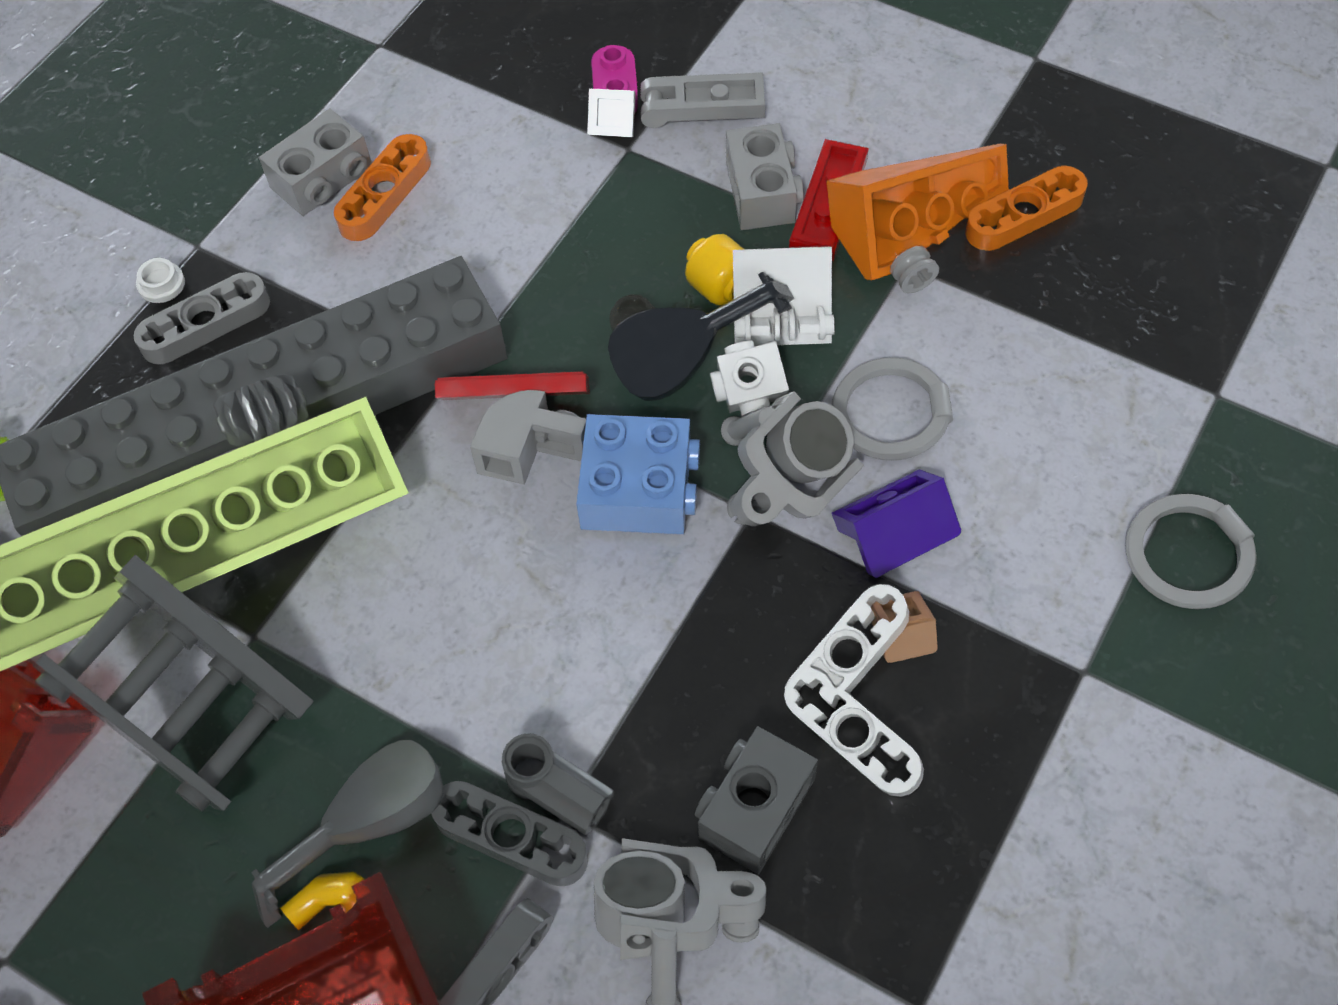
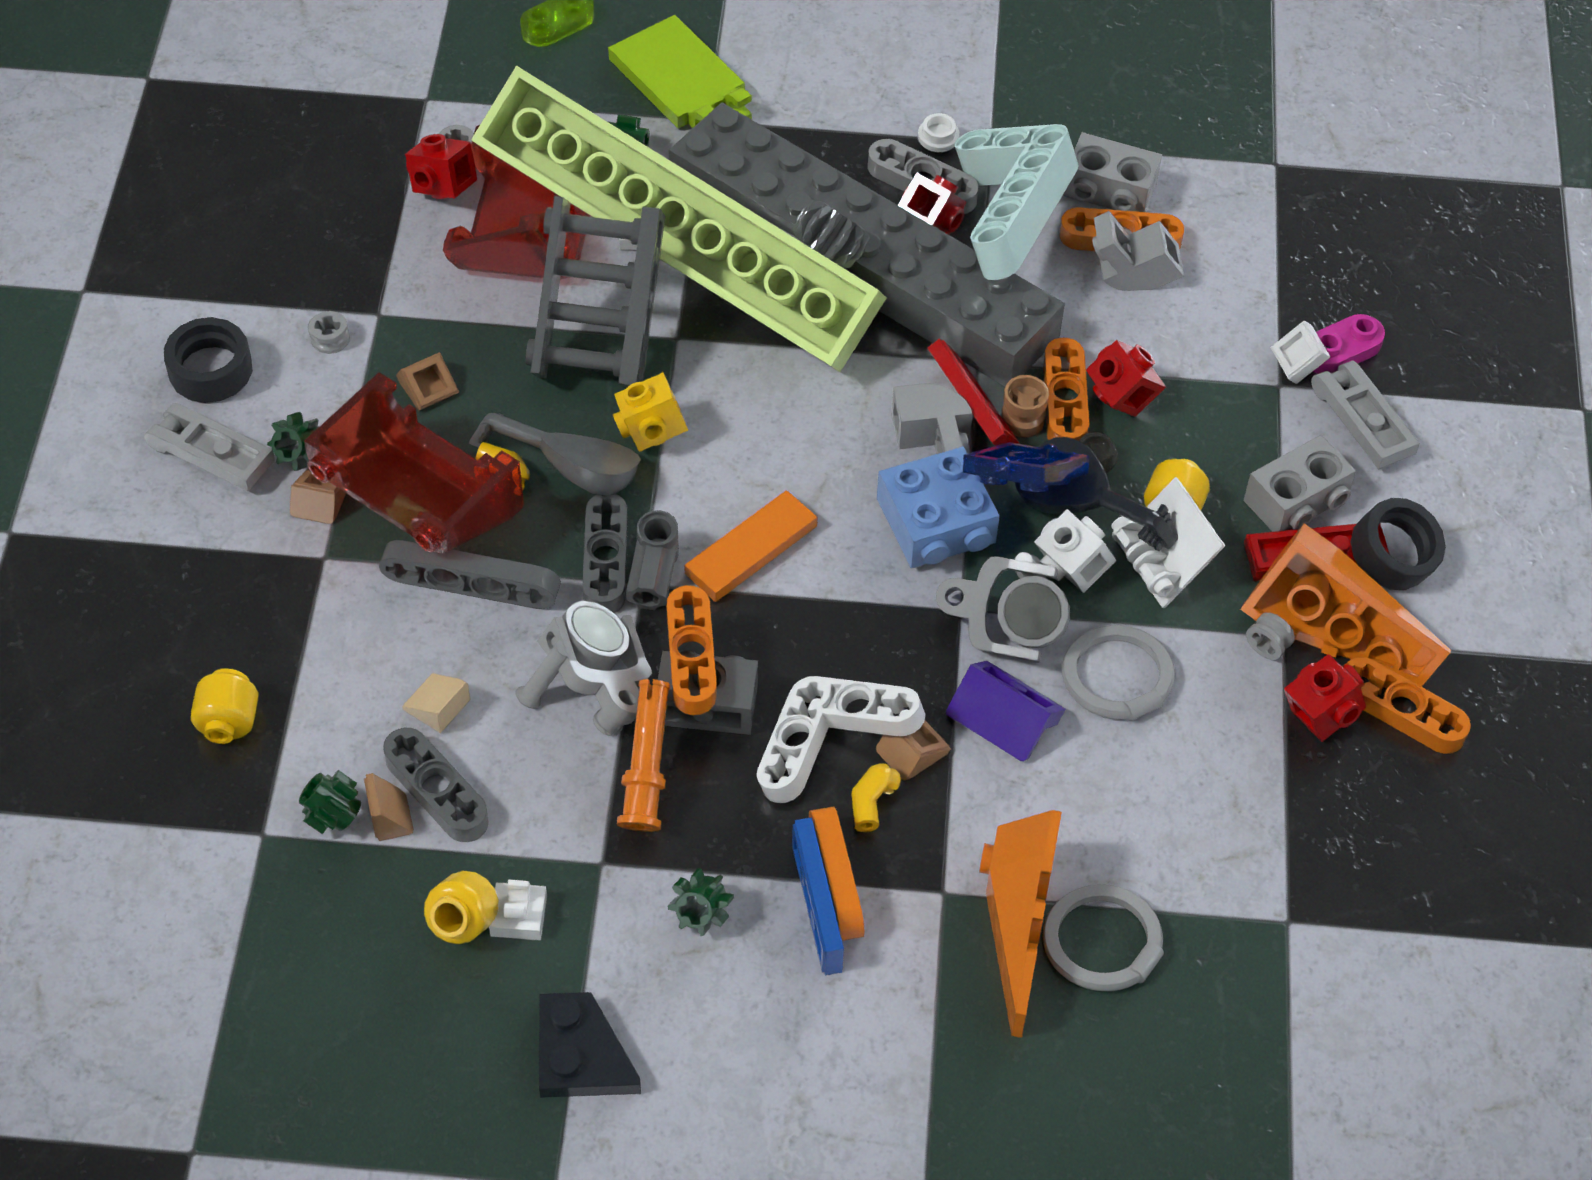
camera: 60 degrees right, 5 degrees down
(146, 941) = (427, 381): none -> medium nougat slope
(251, 300) = (934, 202): none -> red brick
(277, 195) = (1034, 173): none -> light aqua beam
(356, 702) = (649, 412): none -> yellow brick
(429, 183) = (1136, 259): none -> light grey brick
(547, 345) = (1025, 405): none -> medium nougat wheel
(559, 328) = (1073, 379): none -> orange beam
(578, 676) = (750, 545): none -> orange tile
(579, 239) = (1125, 377): none -> red brick
(640, 378) = (1025, 465): none -> clear blue plate
(674, 786) = (683, 666): none -> orange beam
(854, 915) = (644, 778): none -> orange pin
(873, 116) = (1414, 521): none -> black tyre
(946, 690) = (865, 793): none -> yellow arm
(1009, 252) = (1326, 696): none -> red brick
(1035, 920) = (708, 892): none -> dark green gear
(1042, 763) = (838, 872): none -> orange beam
(1067, 793) = (817, 897): none -> blue tile
(1137, 595) = (1016, 898): none -> orange wedge

